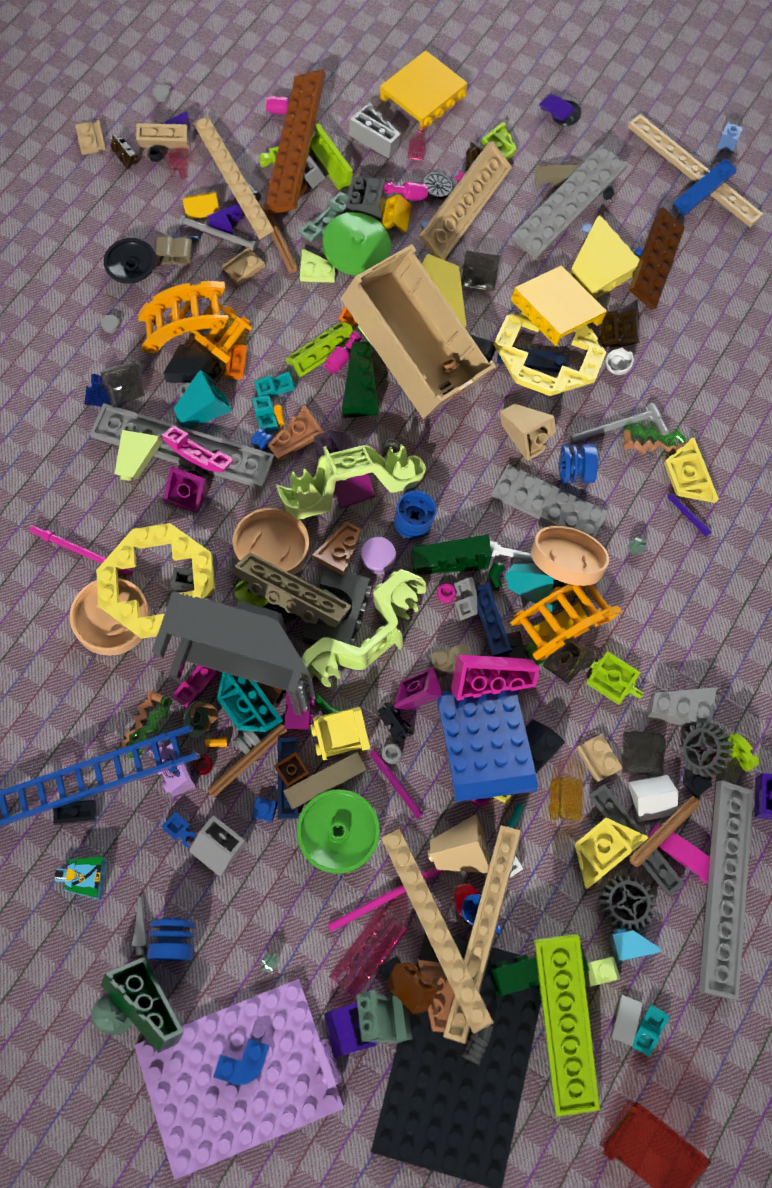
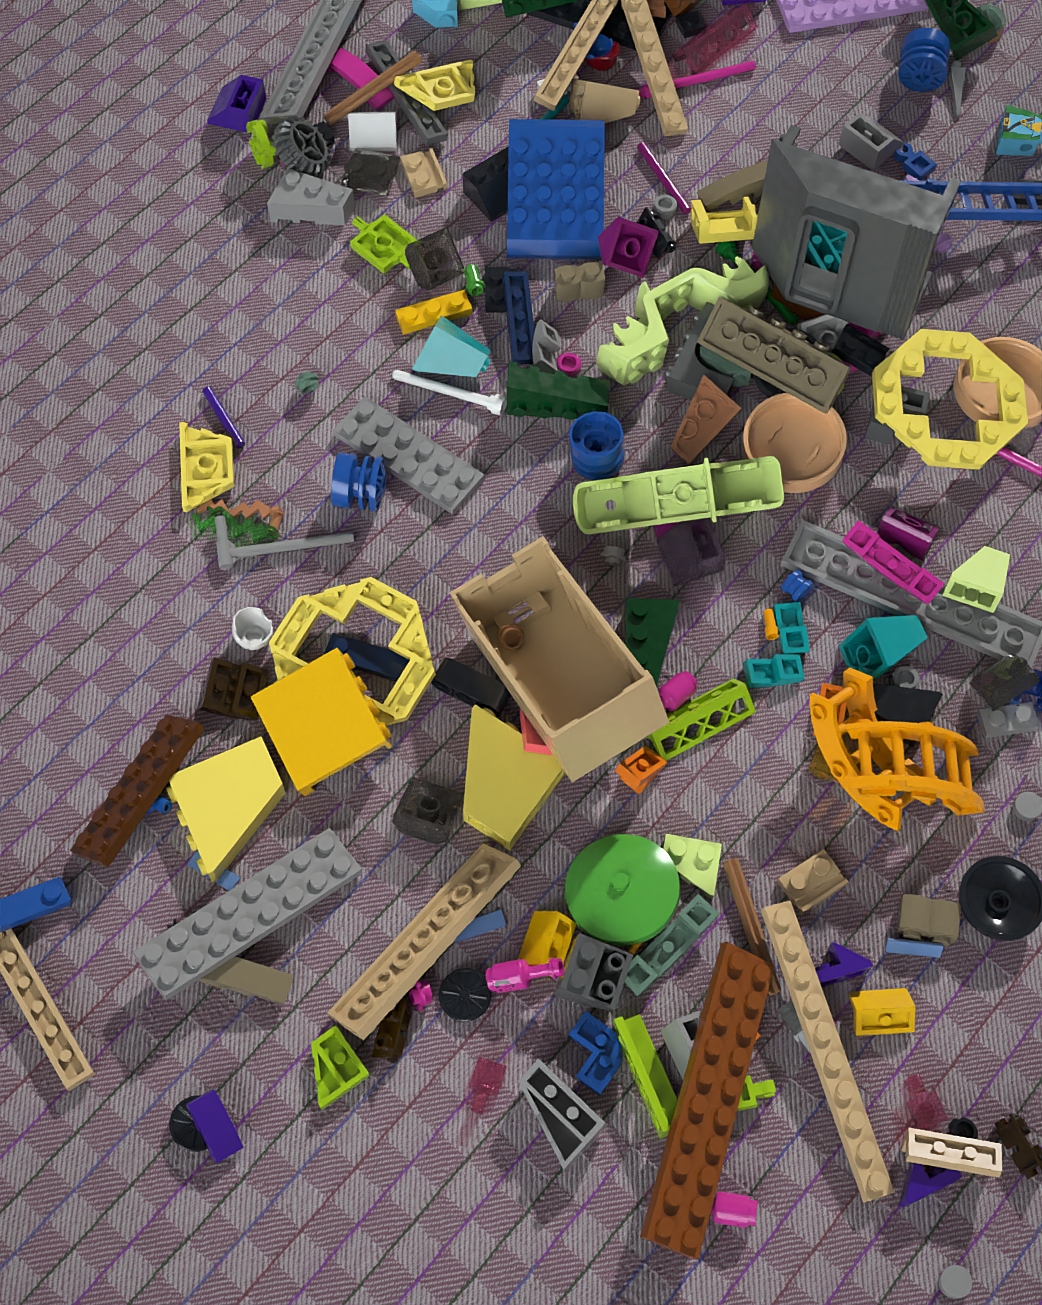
camera: 170 degrees left, 5 degrees down
(141, 730) = (938, 270): piece -> none
(186, 221) = (879, 964): light grey bar -> none
(269, 962) = (819, 41): sand green plate -> none
(296, 435) = (747, 589): nougat wing -> none
(338, 831) = (734, 131): bright green dish -> none
(356, 160) = (604, 1050): none -> blue plate
(378, 555) = (651, 415): lavender head -> none
(424, 88) = (452, 1206): yellow panel -> none
(491, 675) = (531, 246): dark pink wedge -> none
(496, 569) = (499, 378): dark green arm -> none
(528, 429) = (417, 546): tan slope -> none
(566, 799) = (473, 135): clear yellow bracket -> none
(569, 555) = (404, 360): light nougat brick -> none
(580, 625) = (413, 274): light orange fence -> none
(631, 911) = (445, 38): dark grey gear -> none

